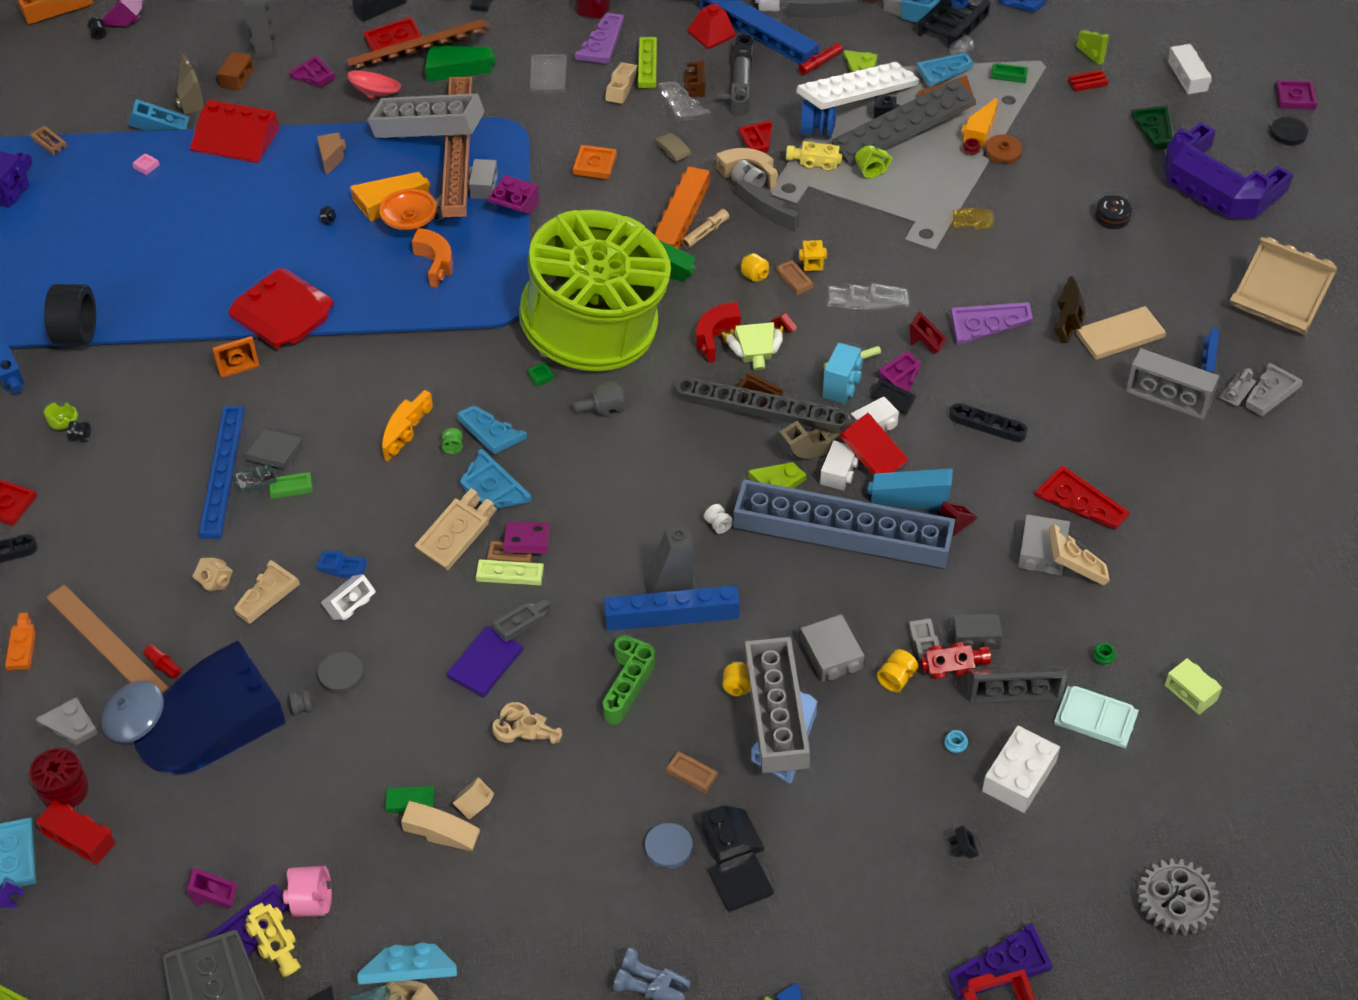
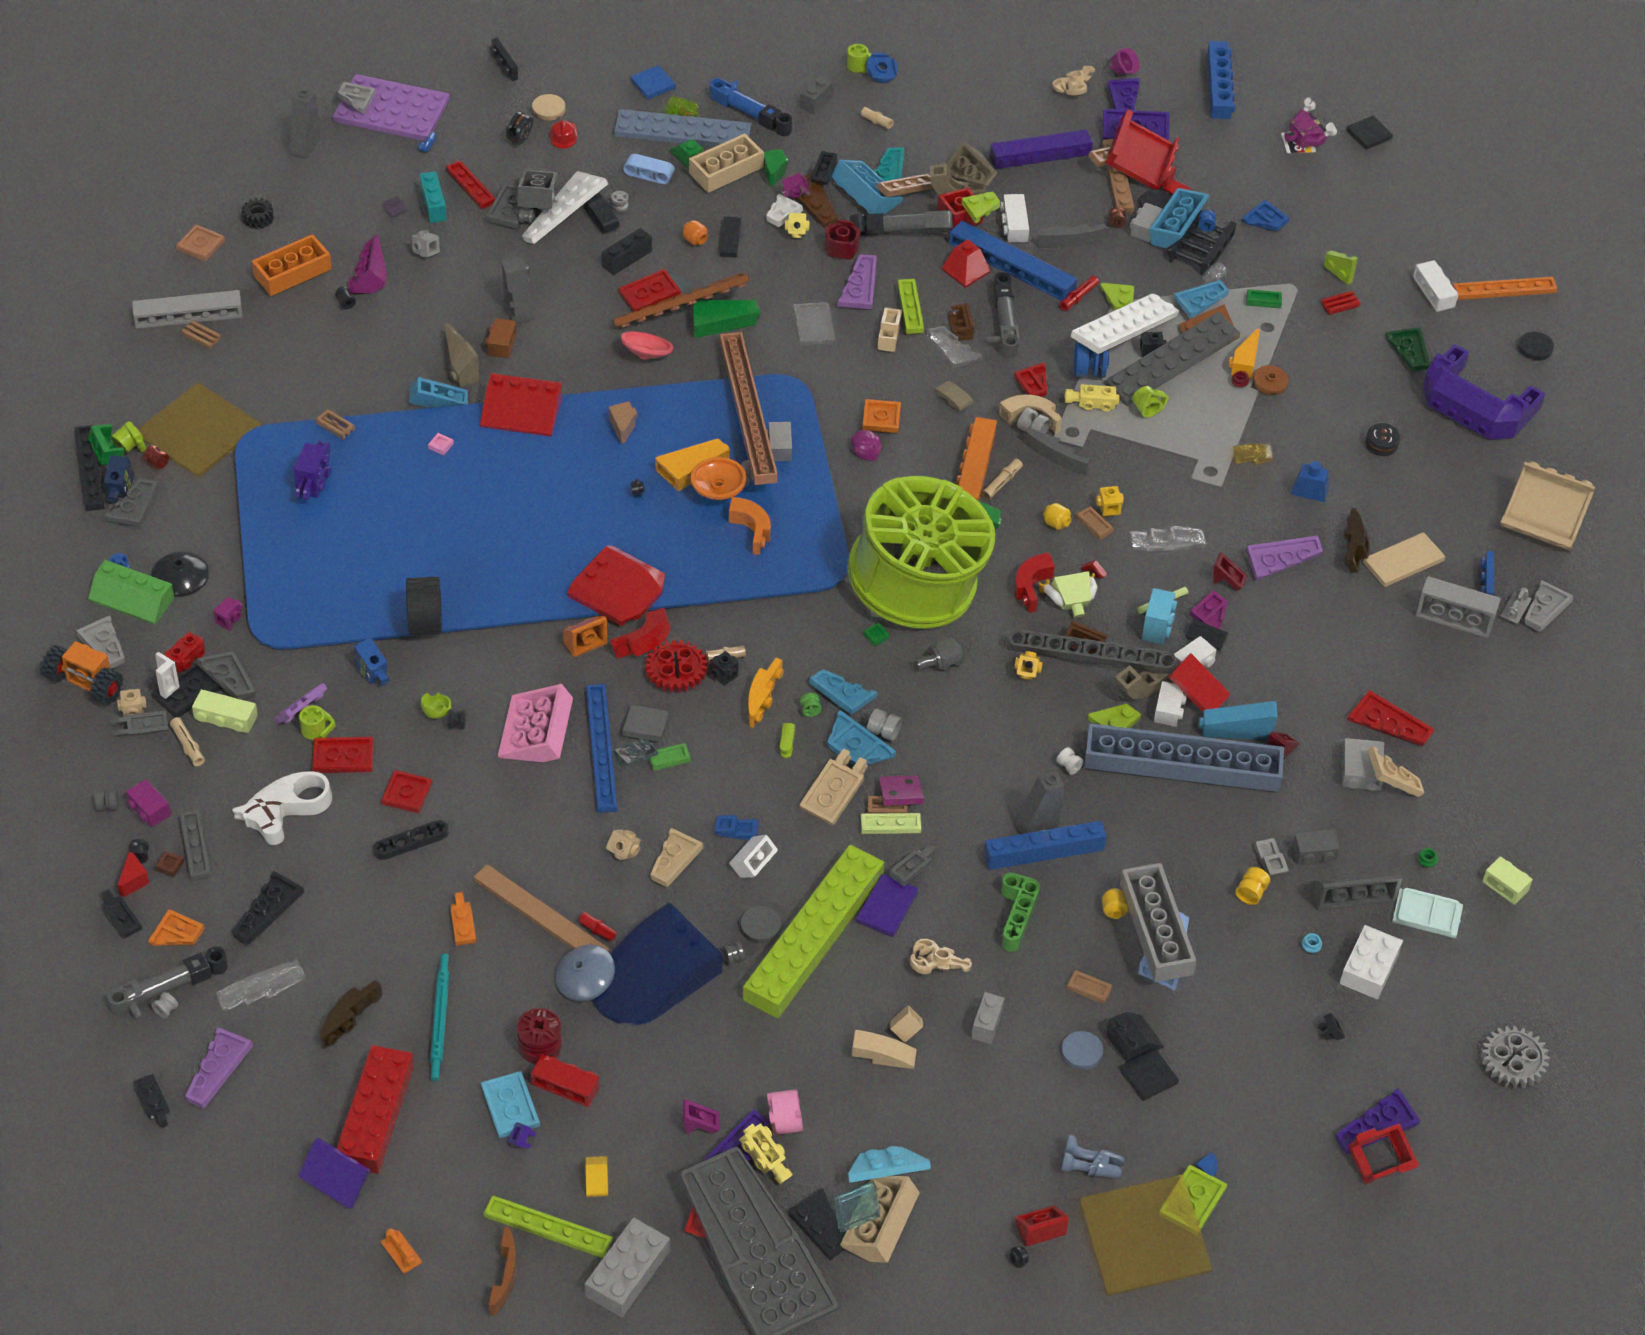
camera: 10 degrees left, 0 degrees up
(69, 722) = (528, 986): light grey wing -> none
(78, 947) = (596, 1176): none -> yellow slope
(160, 443) = (536, 725): none -> bright pink slope
(299, 359) = (645, 638): none -> red arch
(307, 390) = (690, 661): none -> red gear
(313, 72) = (579, 334): magenta wing -> none
(370, 397) = (724, 668): none -> black brick
(376, 383) = (738, 652): none -> tan pin
(392, 686) = (813, 931): none -> lime brick
(398, 798) = (845, 1029): green tile -> none
(419, 476) = (787, 740): none -> lime bar
(426, 116) = (713, 380): light grey brick -> none
(515, 194) = (816, 456): magenta slope -> none
(525, 466) = (886, 725): none -> light grey wheel
(566, 799) = (988, 1018): none -> light grey brick
(572, 188) = (866, 445): none -> magenta hair
(685, 415) = (1025, 672): none -> yellow brick
(831, 648) = (1192, 870): light grey brick -> none
(951, 661) = (1298, 872): brick -> none
(987, 425) = (1295, 656): black beam -> none
(1031, 248) = (1312, 482): none -> blue torso
(1261, 75) = (1505, 288): none -> orange tile
(1296, 94) = (1538, 307): magenta tile -> none

